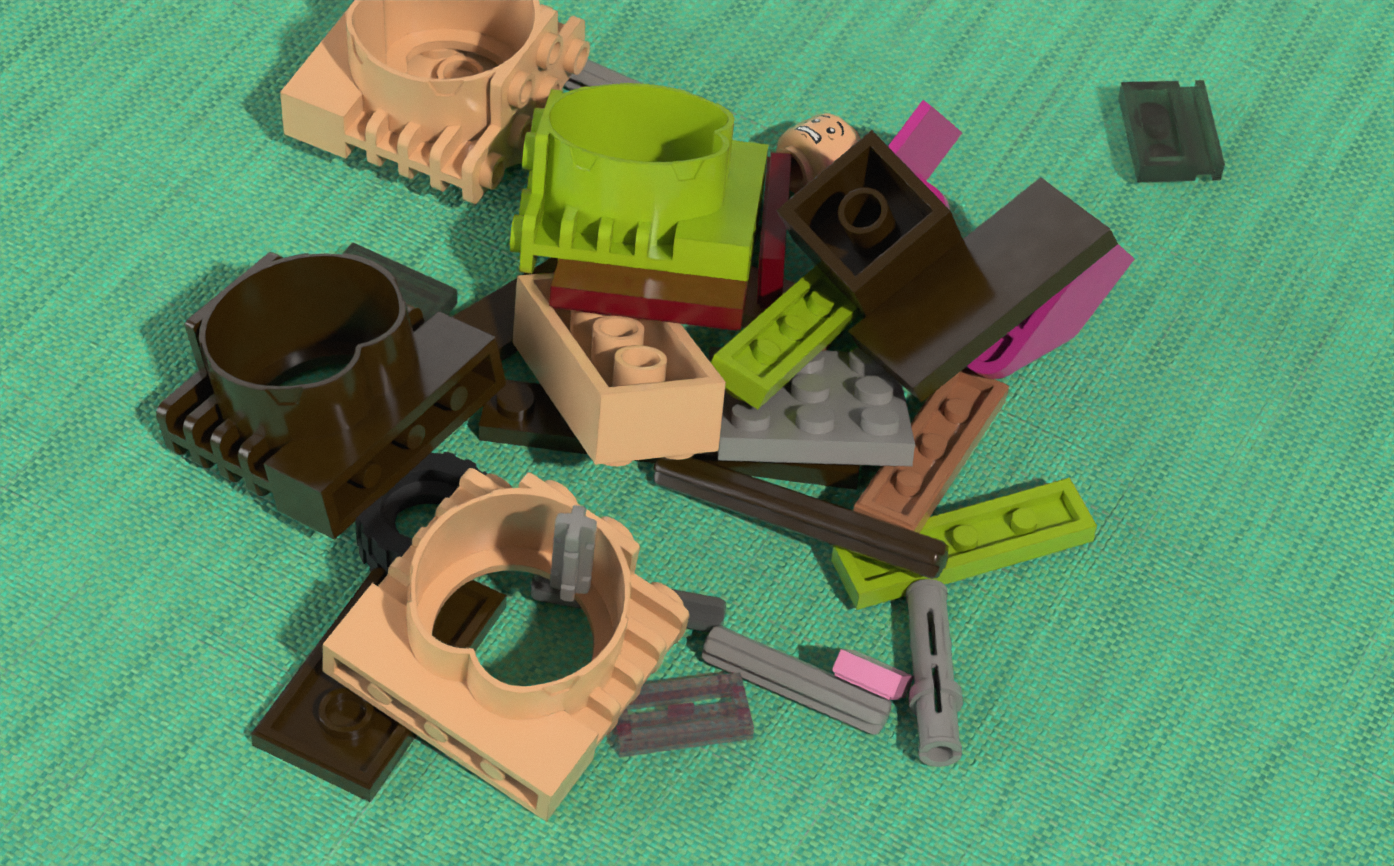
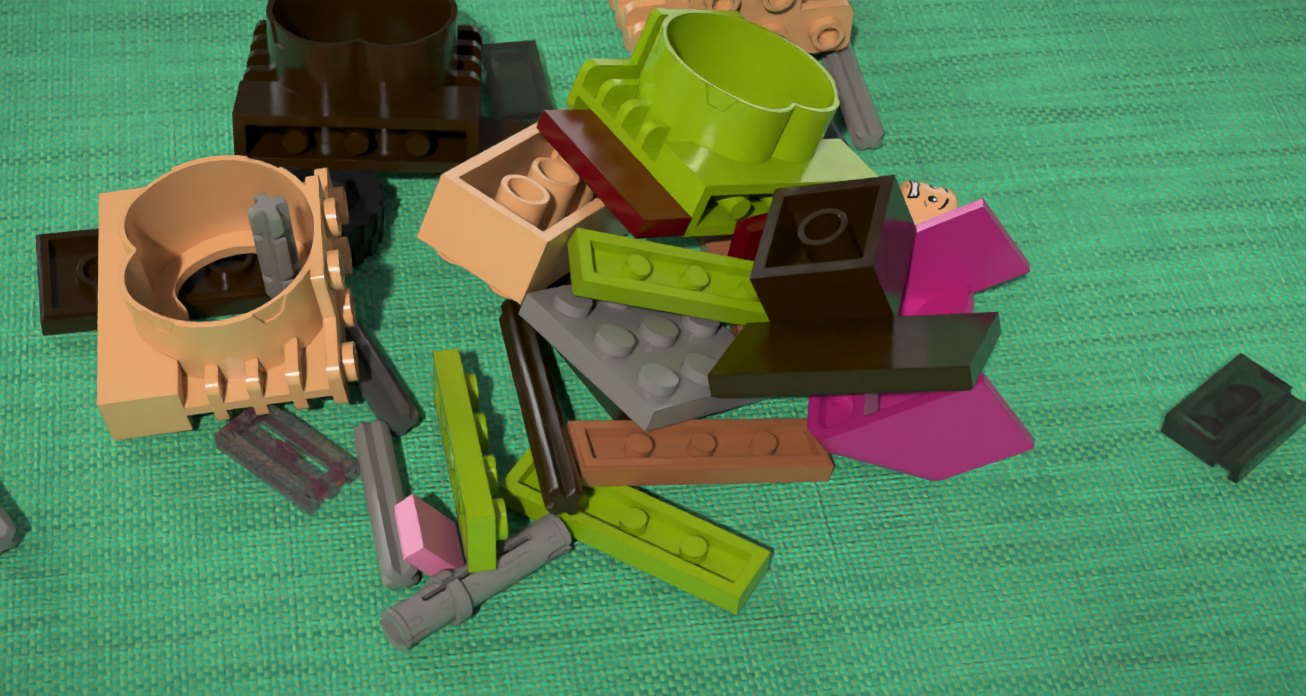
camera: 50 degrees right, 5 degrees down
(823, 595) = (470, 473): none -> lime plate

